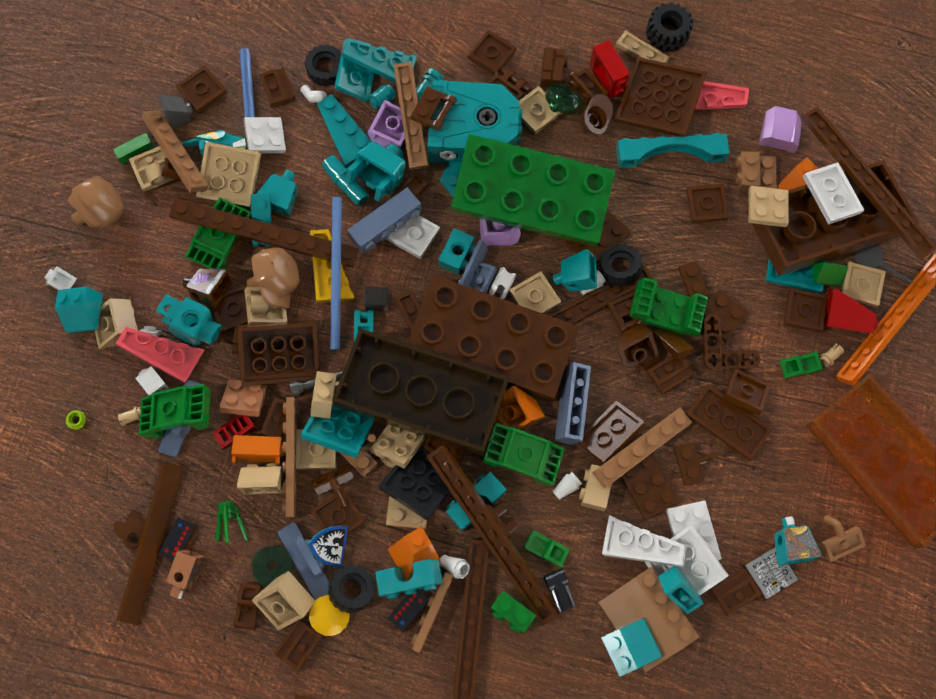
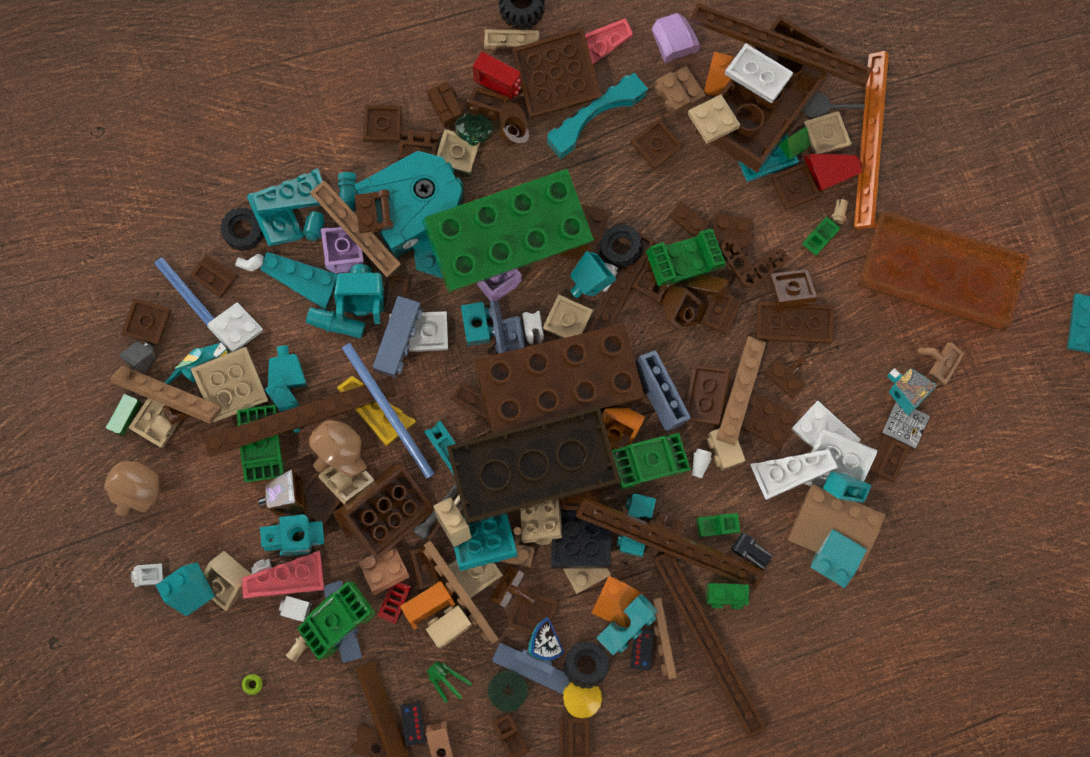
camera: 35 degrees left, 5 degrees up
(284, 601) = (539, 712): tan slope -> none
(377, 298) = (437, 409): clear smoke brick -> none
(457, 567) = (656, 589): white cone -> none

